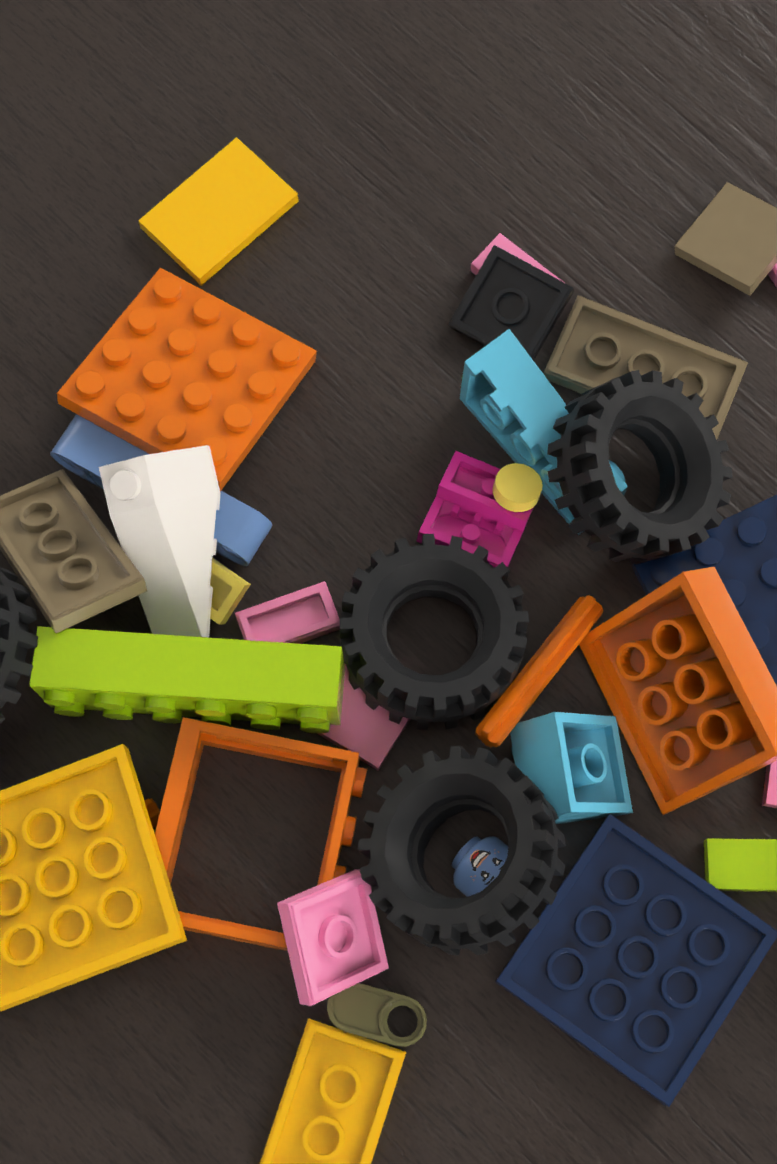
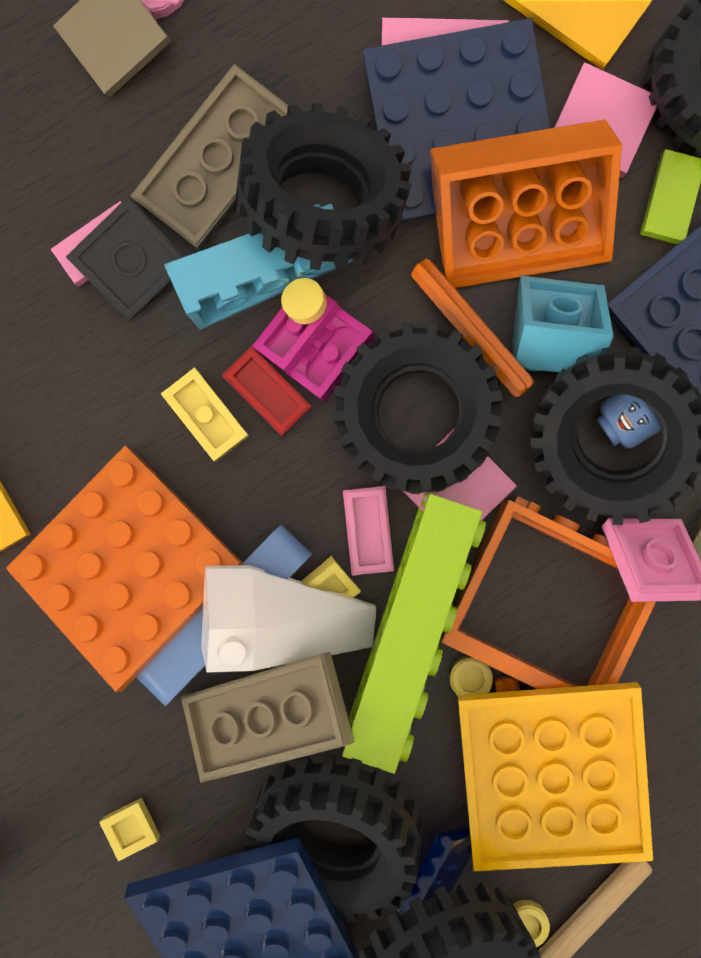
camera: 75 degrees left, 15 degrees up
(152, 770) = (470, 676): none -> light yellow tile
(369, 421) = (204, 414): none -> light yellow plate
(411, 479) = (266, 391): none -> red tile

